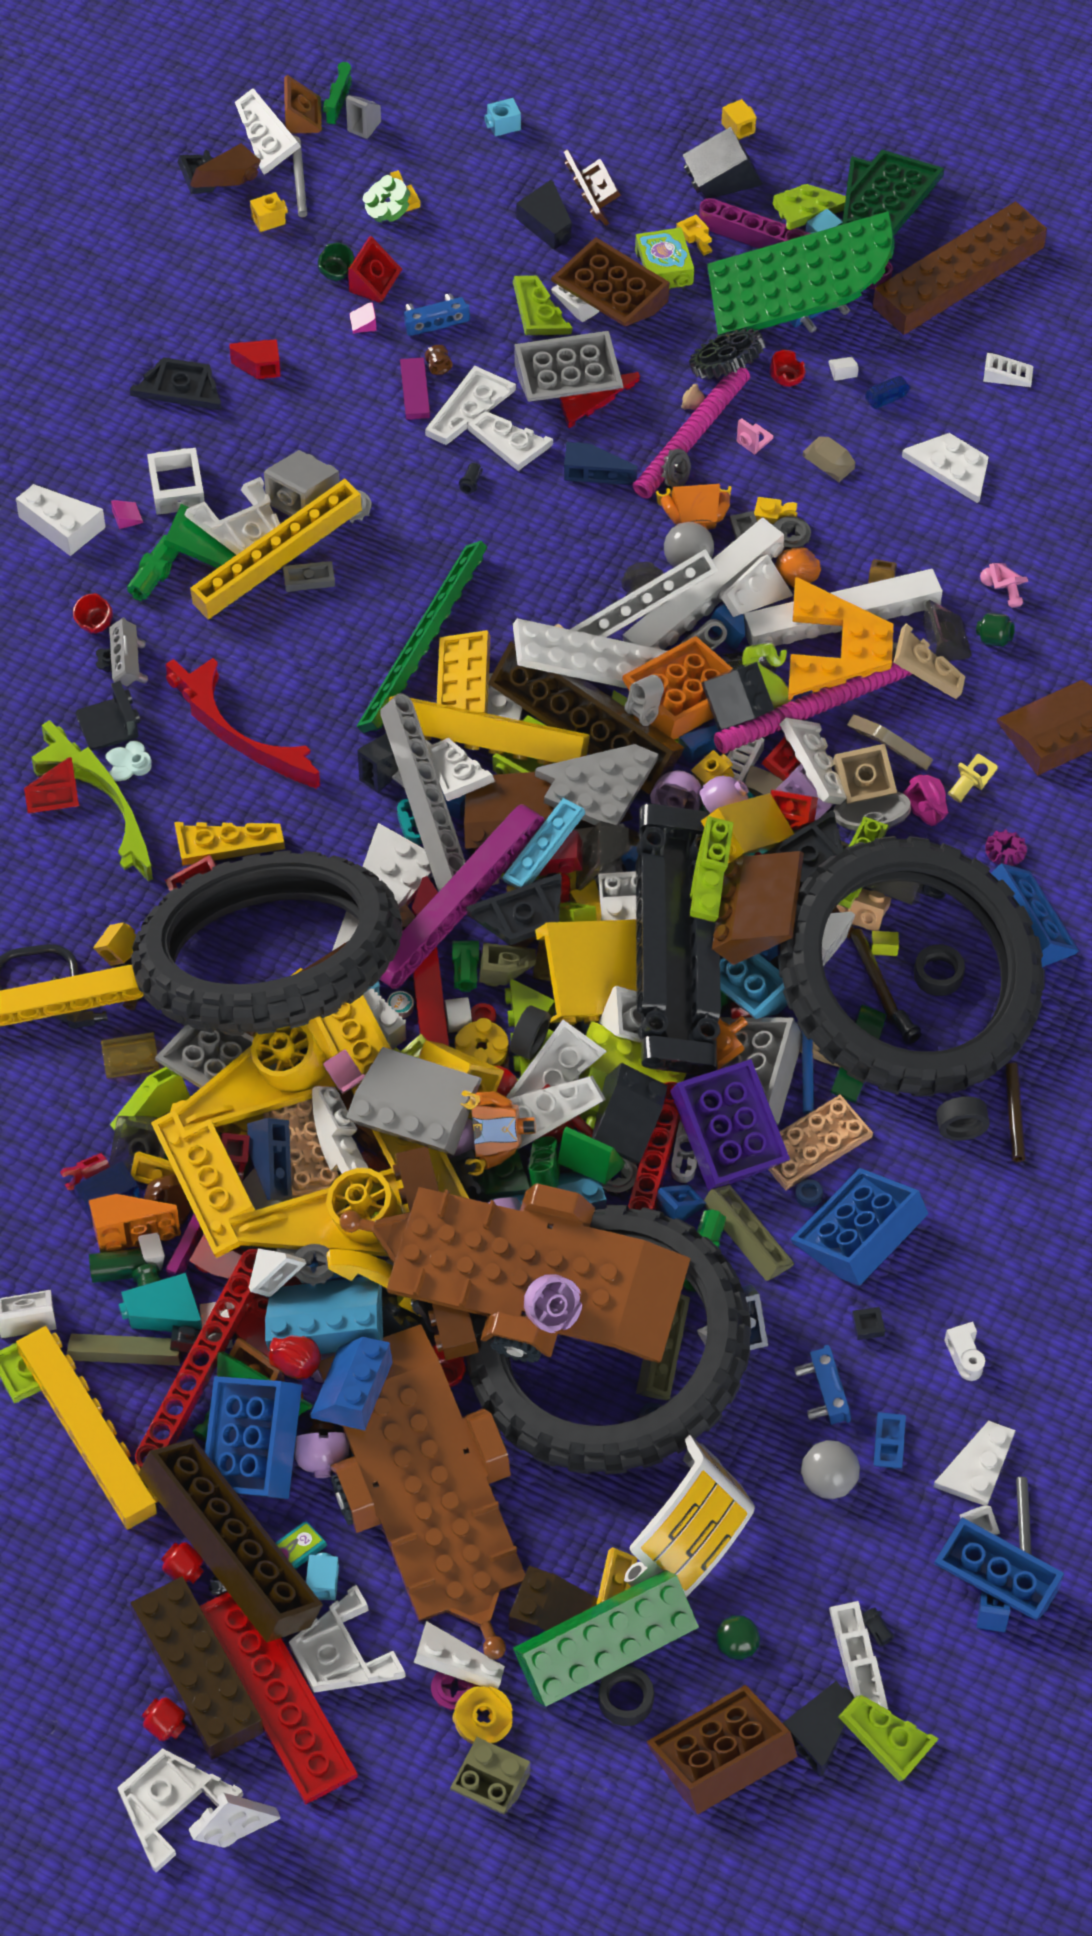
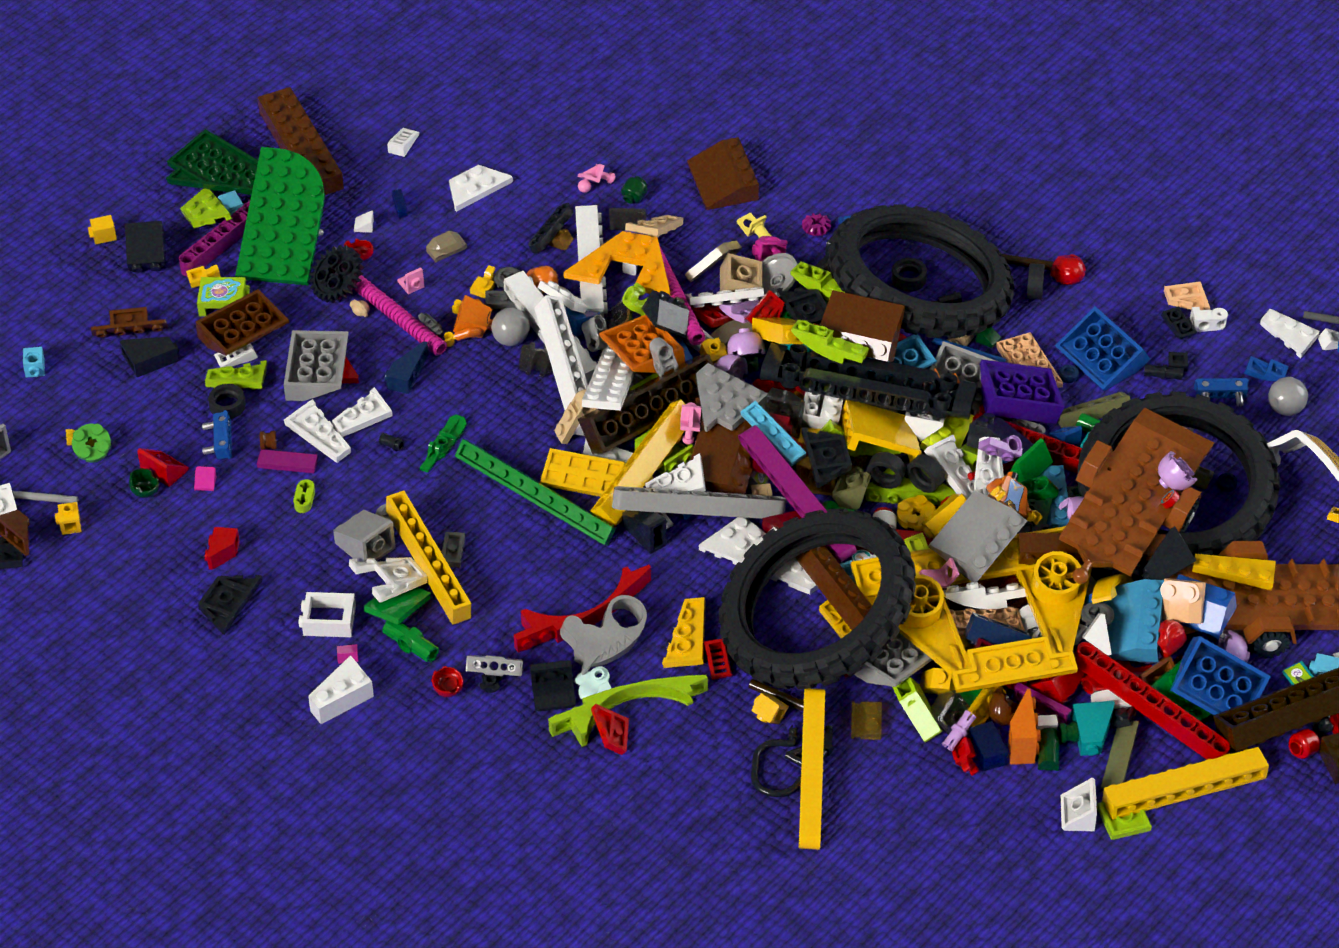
camera: 75 degrees left, 10 degrees down
(113, 1150) = (959, 730): none -> lavender pin
(179, 752) = (605, 644): none -> light grey animal
(343, 1353) = (1183, 600): none -> light nougat slope
(362, 416) = (308, 496): none -> lime beam
(407, 823) = (701, 527): teal beam -> none
(424, 1330) = (1168, 558): none -> black slope
(447, 1435) = (1240, 570): none -> yellow wing
(492, 293) = (224, 391): none -> black tyre
(498, 533) = (448, 436): none -> green piece
(512, 1307) = (1170, 499): none -> red tile
(525, 986) = (890, 461): none -> black tyre
(560, 752) = (690, 421): none -> bright pink piece
(573, 1091) = (1007, 449): none -> medium lavender plate
(842, 1308) = (1164, 372): none -> black pin
(894, 556) = (550, 228): none -> black beam
(954, 1313) = (1177, 323): none -> black slope
(1007, 1320) = (1187, 296): none -> light nougat wing
(1010, 1160) = (1068, 269): none -> red hair

